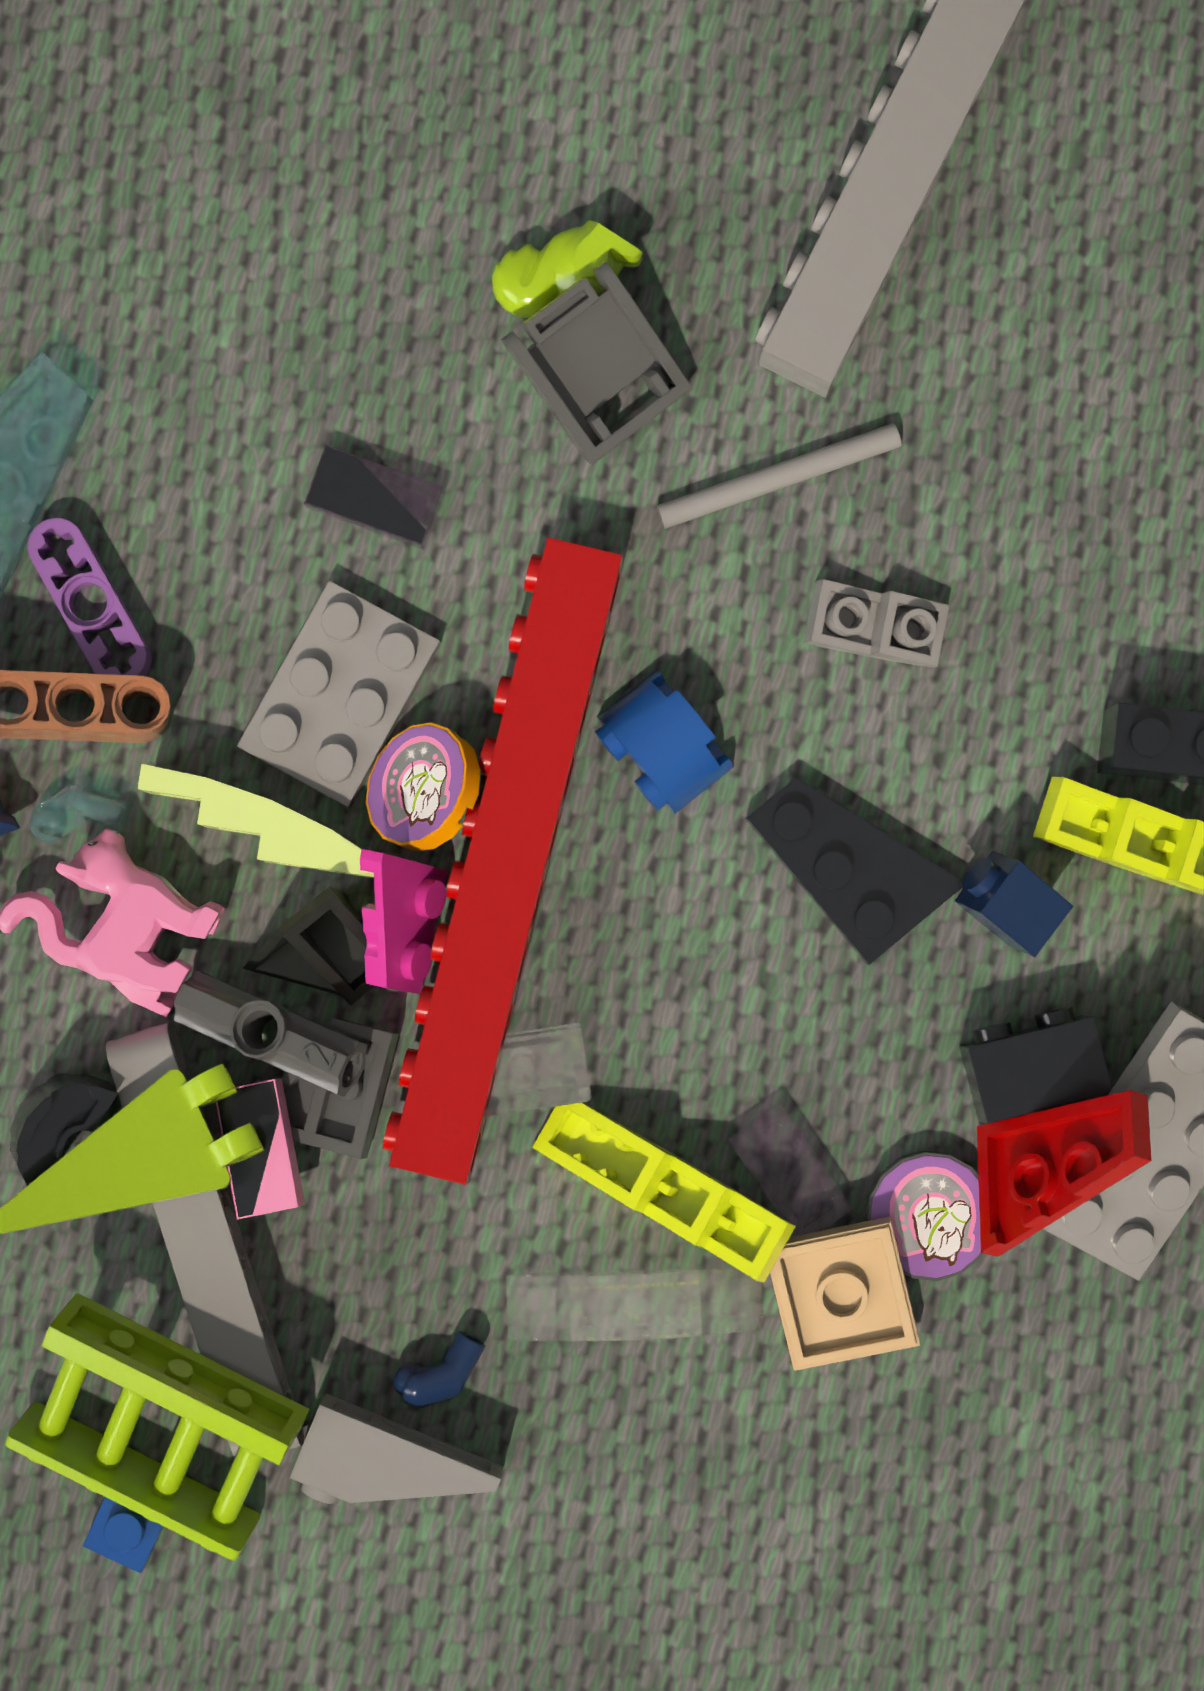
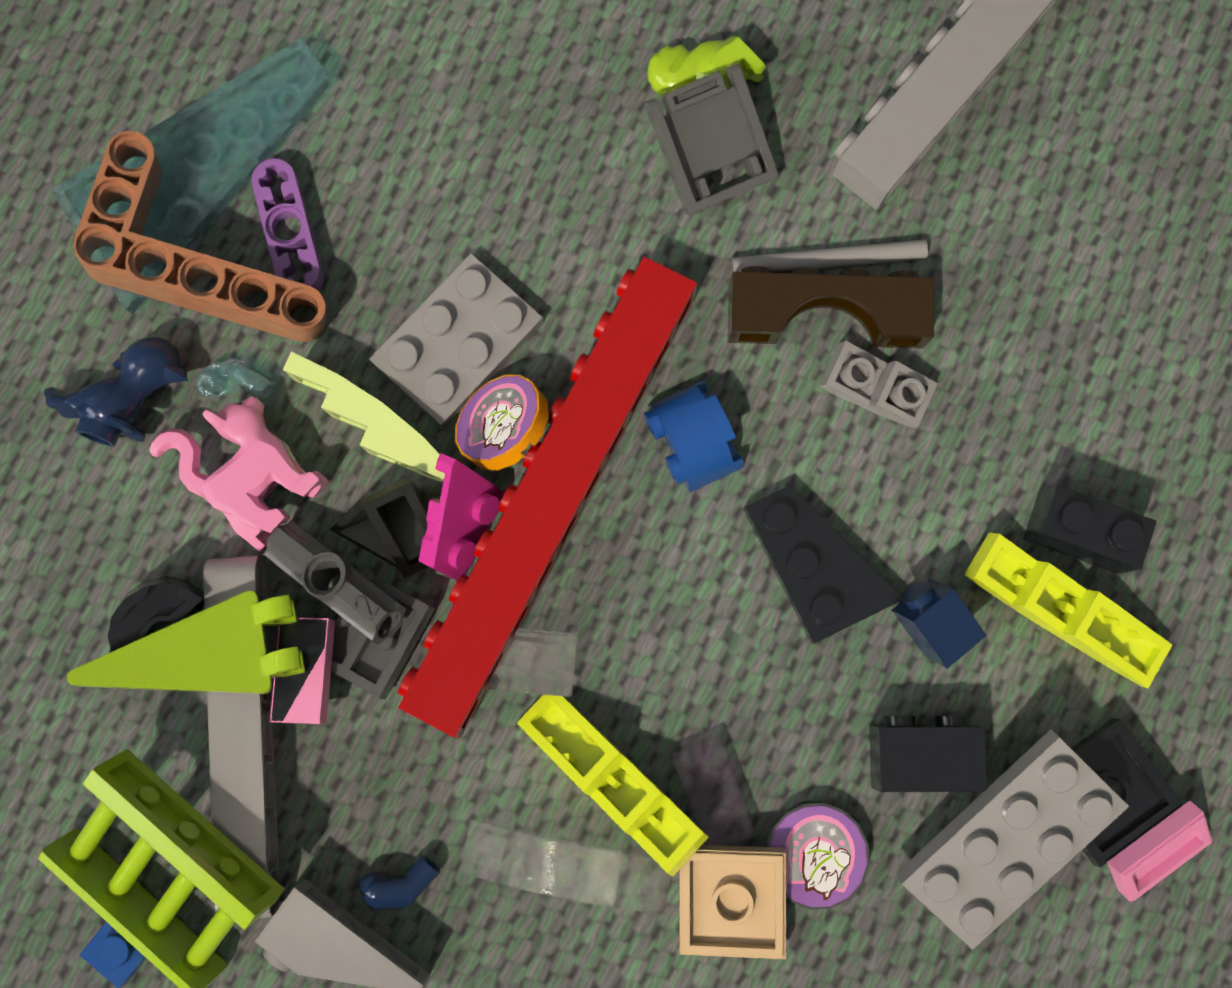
camera: 10 degrees right, 5 degrees down
(374, 497) = (521, 202): black tile -> none
(872, 526) = (891, 308): none -> dark brown arch
(1054, 1162) = (930, 837): red wing -> none

